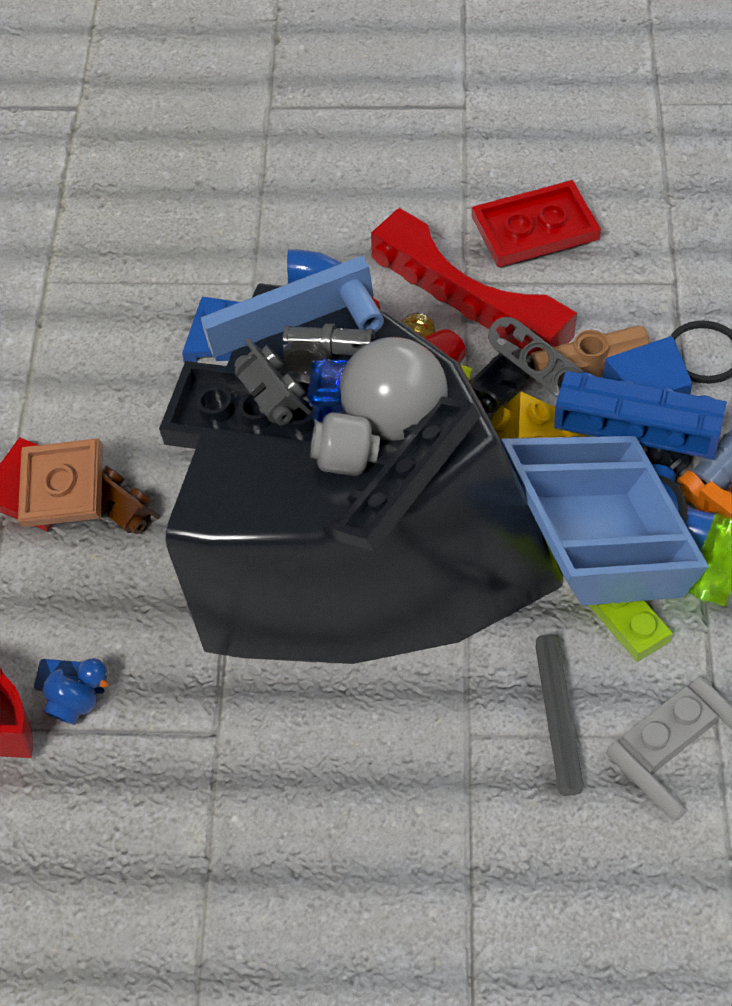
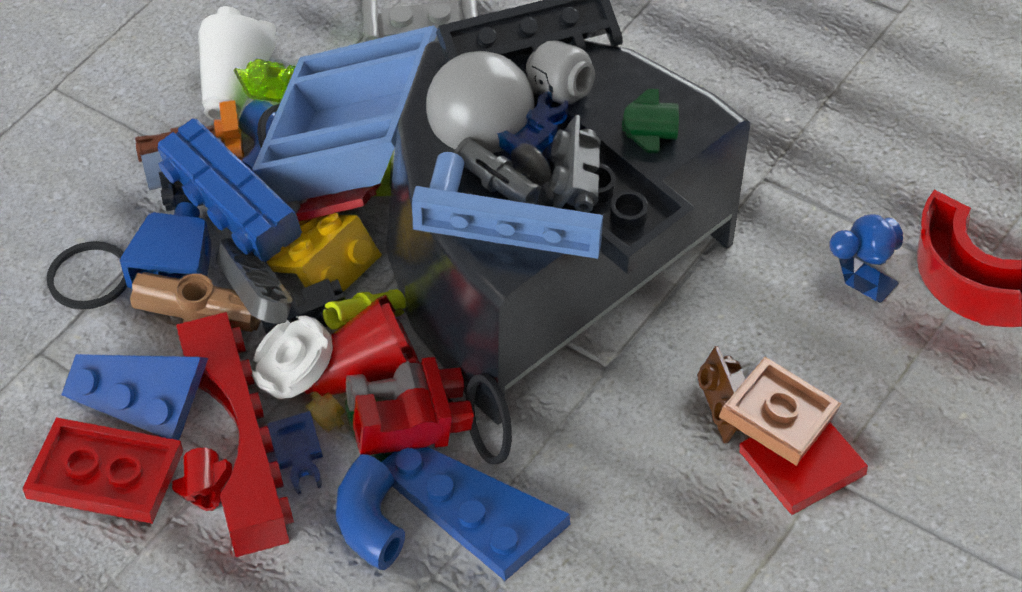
camera: 145 degrees left, 5 degrees down
(236, 456) = (648, 121): none -> dark green piece
(414, 298) = (296, 446): none -> clear blue plate
(463, 250) = (202, 478): none -> red piece
(463, 330) = (292, 357): none -> white tile
(557, 273) = (138, 389): none -> blue wing

